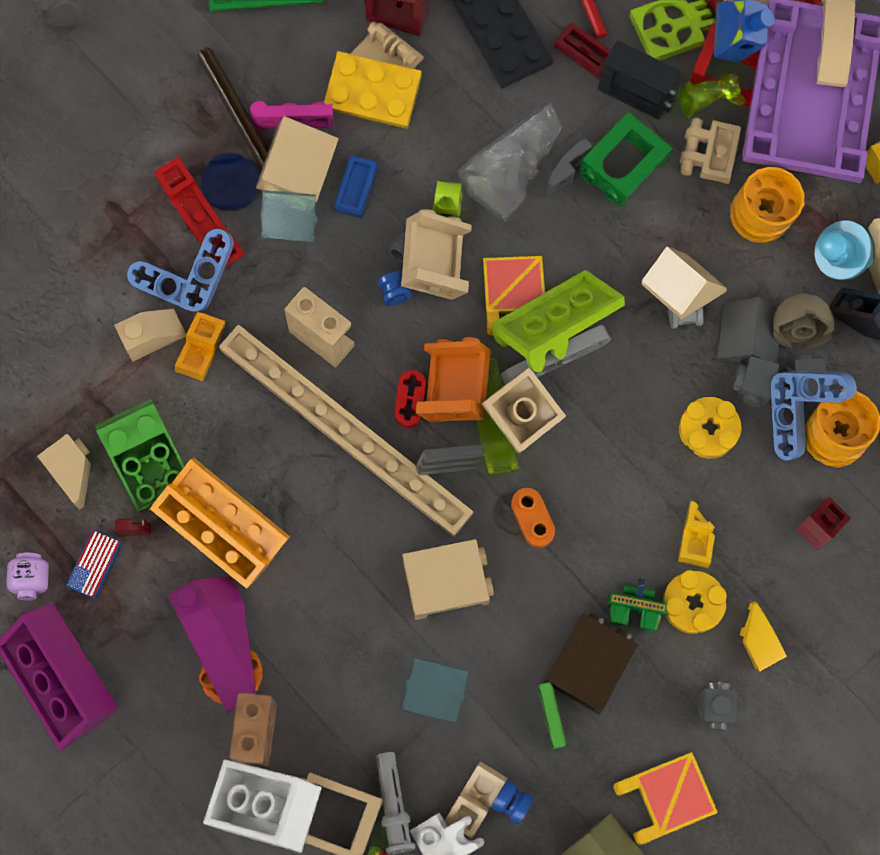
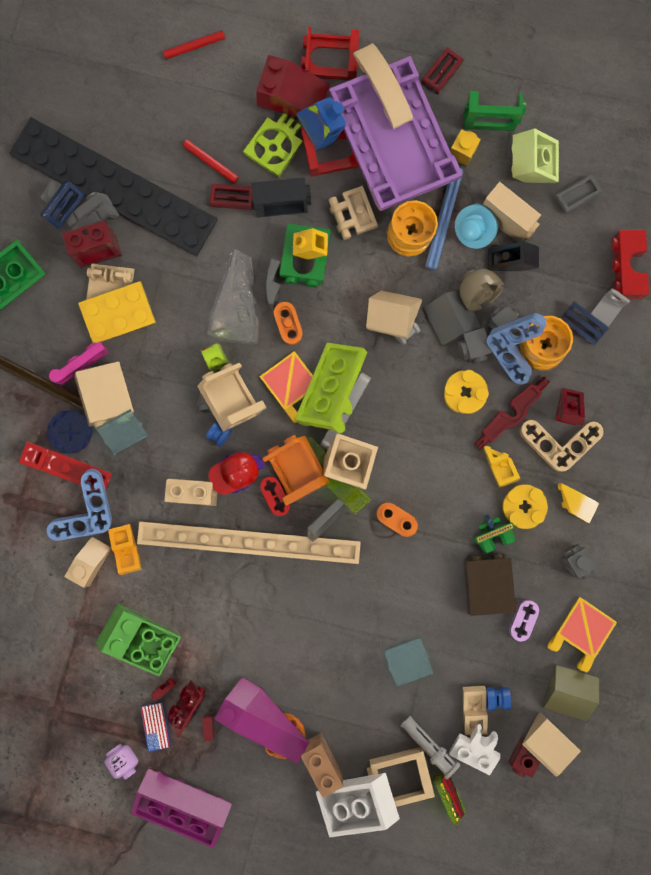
camera: 30 degrees left, 10 degrees up
(69, 467) = (99, 680): tan slope -> none
(128, 566) = (182, 712): none -> dark red hinge
(153, 604) = (208, 727): none -> dark red tile
(220, 523) = (214, 653): light orange brick -> none
(356, 186) = (150, 382): blue tile -> none
(383, 342) = (235, 472): none -> red hair
(447, 578) = (372, 593): tan panel -> none
(551, 716) = (487, 633): bright green tile -> none
(555, 222) = (288, 324): none -> orange plate
(610, 740) = (519, 618): none -> lavender beam
(638, 146) = (310, 244): none -> yellow brick
(698, 96) = (321, 184): clear neon green animal -> none
(733, 488) = (520, 405): none -> dark red piece
(776, 563) = (558, 451): none -> tan beam
(809, 224) = (443, 222): none -> medium blue axle

